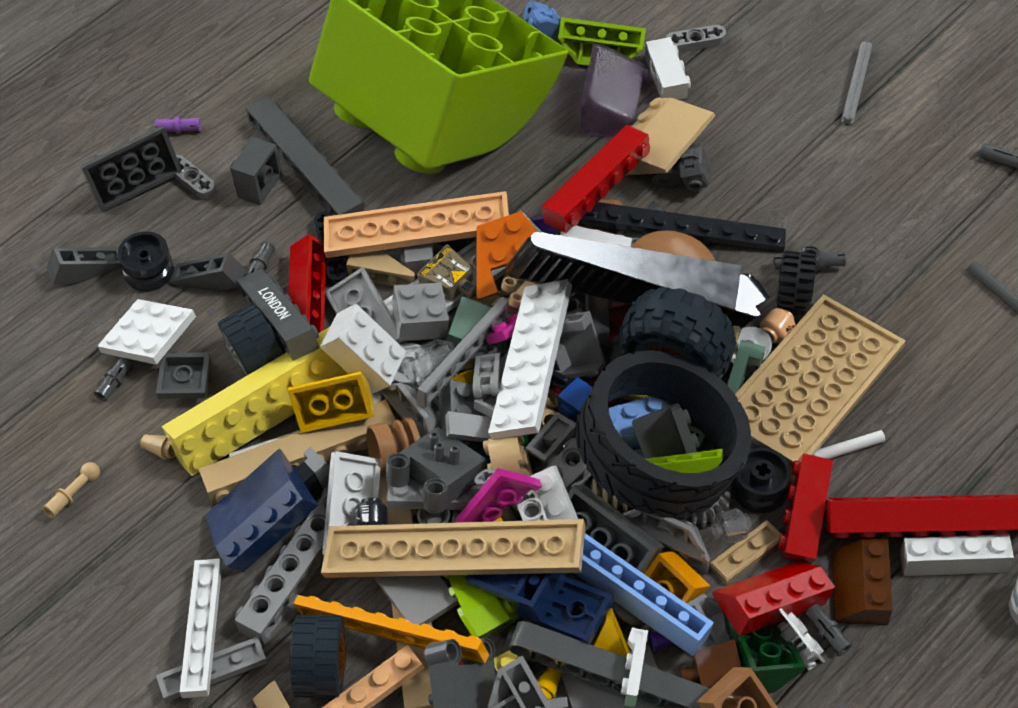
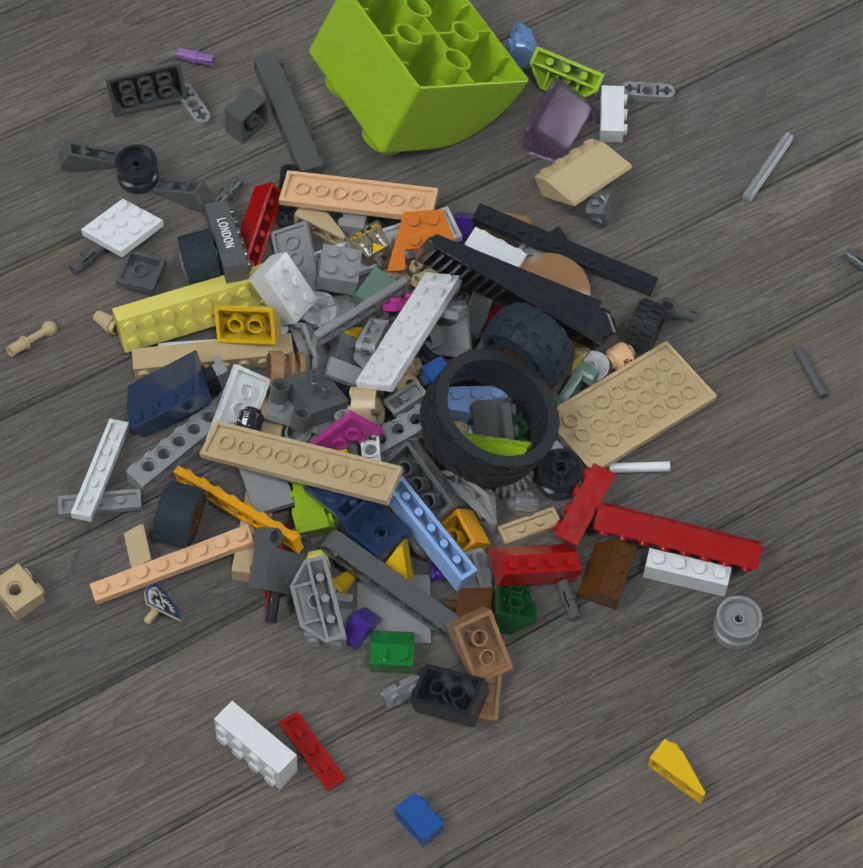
camera: 10 degrees right, 5 degrees up
(554, 495) = (391, 444): white plate -> none
(596, 178) = (513, 196): red brick -> none
(634, 663) = (408, 584): white hinge -> none
(794, 632) = (541, 595): white hinge -> none

